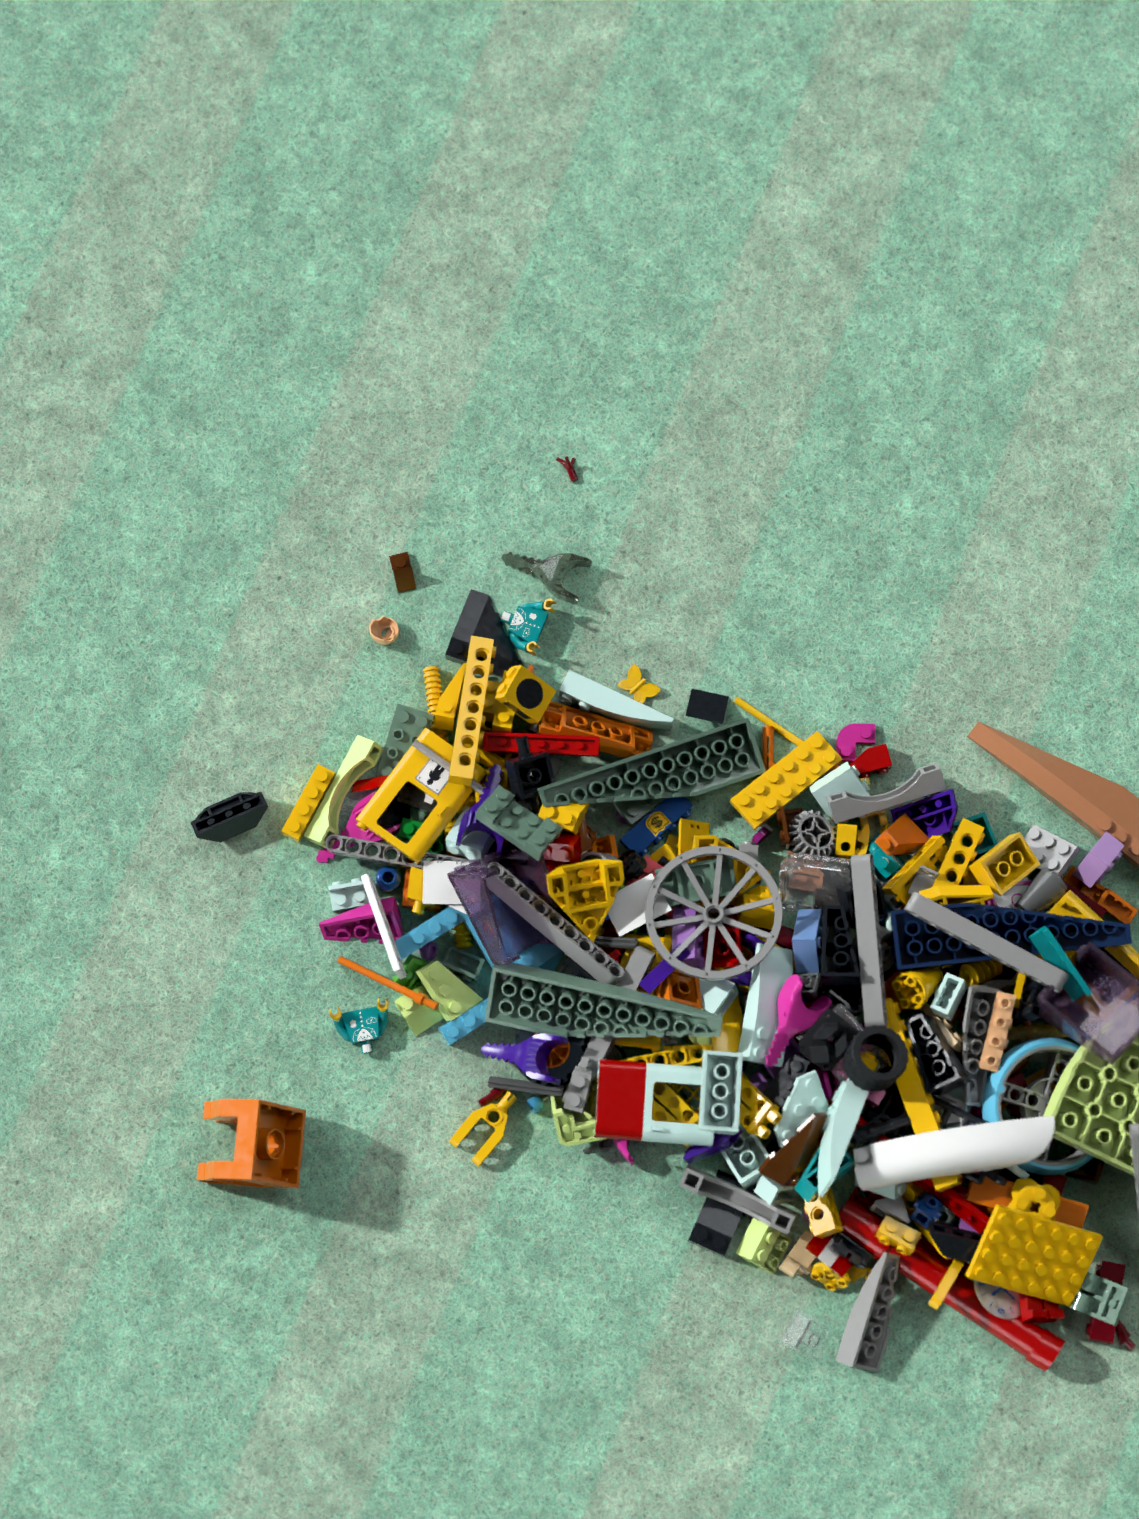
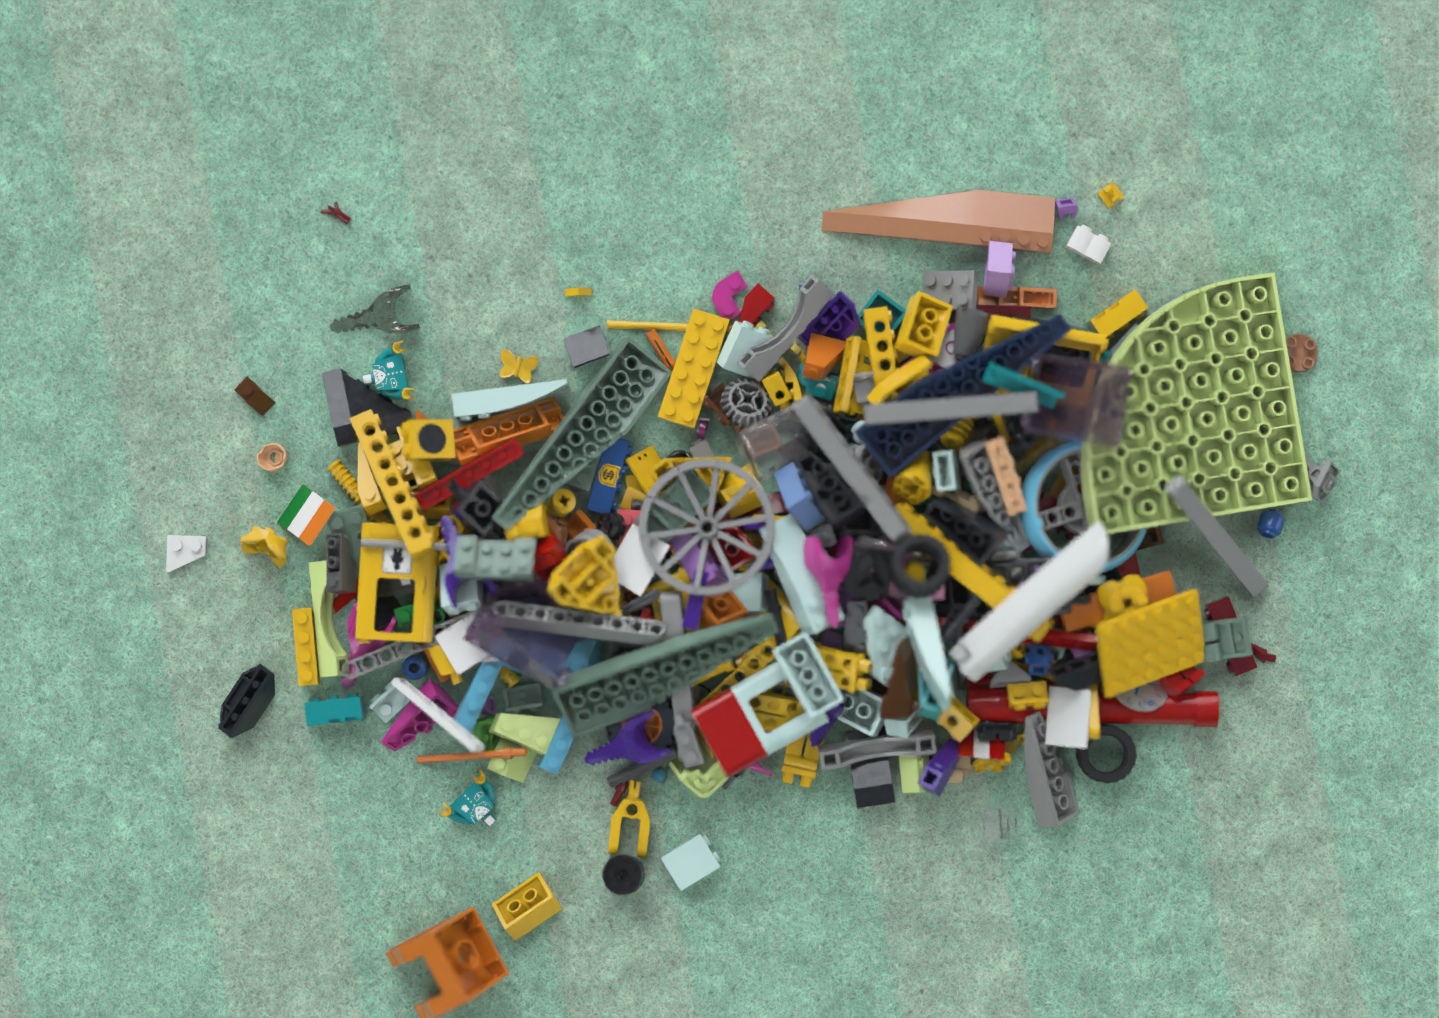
camera: 30 degrees left, 10 degrees up
(260, 660) = (184, 550): none -> white wing
(297, 871) = (335, 709): none -> teal wedge
(333, 694) = (267, 542): none -> yellow brick
(350, 1142) = (526, 906): none -> yellow slope
(381, 694) = (306, 515): none -> sticker
(381, 754) = (339, 565): none -> dark grey slope
(450, 1155) = (613, 879): none -> black wheel
(515, 1194) = (691, 861): none -> light aqua brick
(601, 819) = (560, 503): none -> yellow piece
(661, 1171) = (800, 764): none -> yellow hips
(728, 657) = (575, 292): none -> yellow tile
(728, 1016) = (775, 609): none -> black pin
(781, 1250) = (940, 768): none -> dark purple slope
(849, 1187) = (961, 678): none -> dark grey bar
(921, 1275) = (1068, 717): none -> white sticker
(957, 1333) = (1125, 767): none -> black tyre

